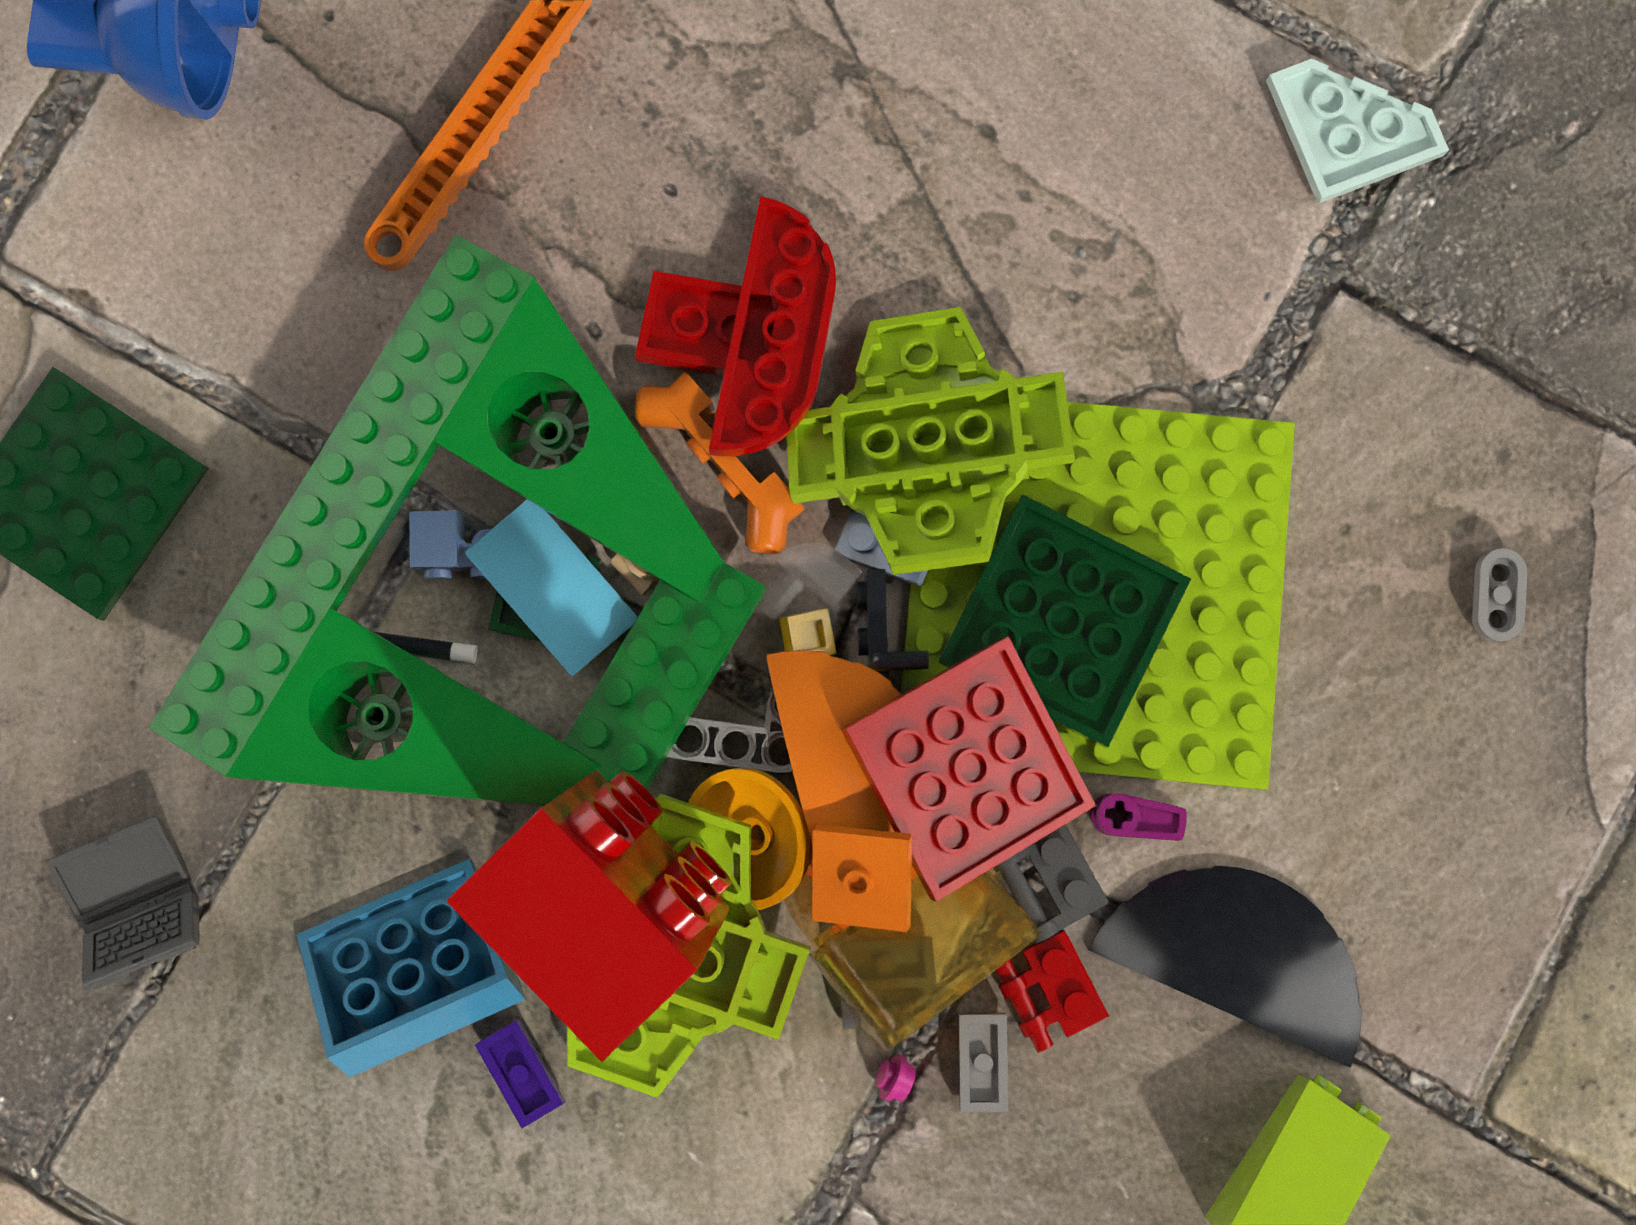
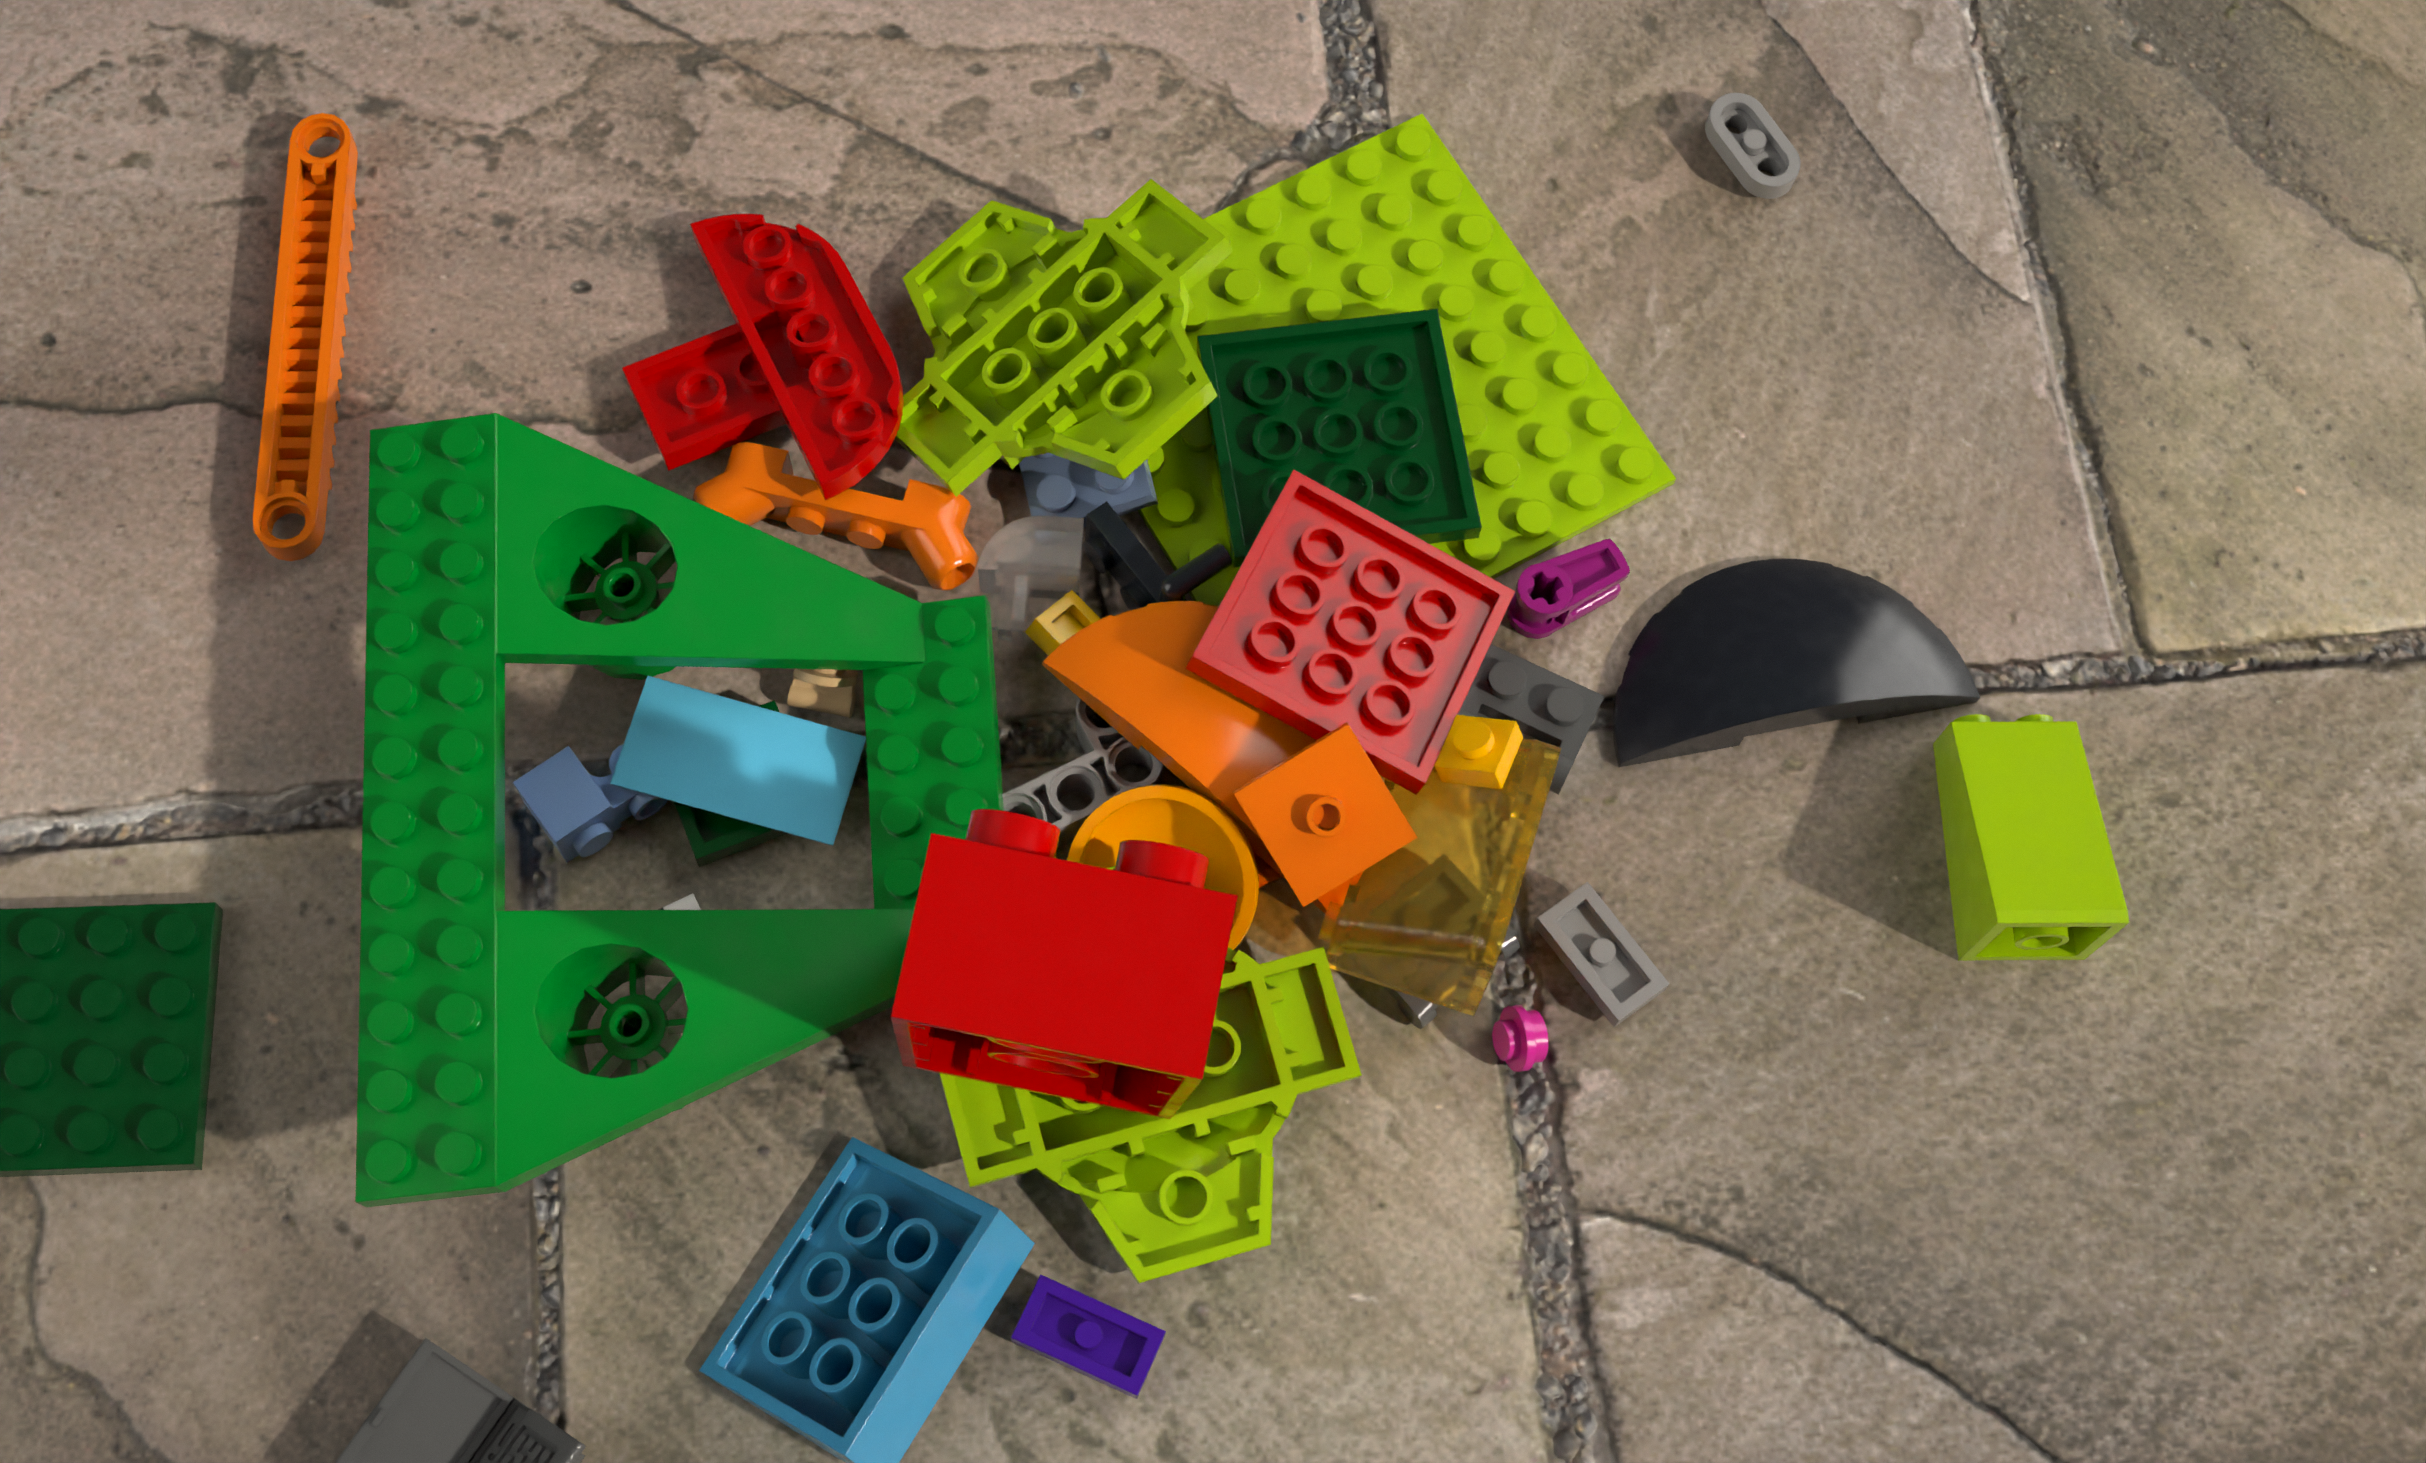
camera: 45 degrees left, 15 degrees down
(985, 903) = (1479, 751): none -> yellow plate
(1064, 984) = (1622, 816): red plate -> none

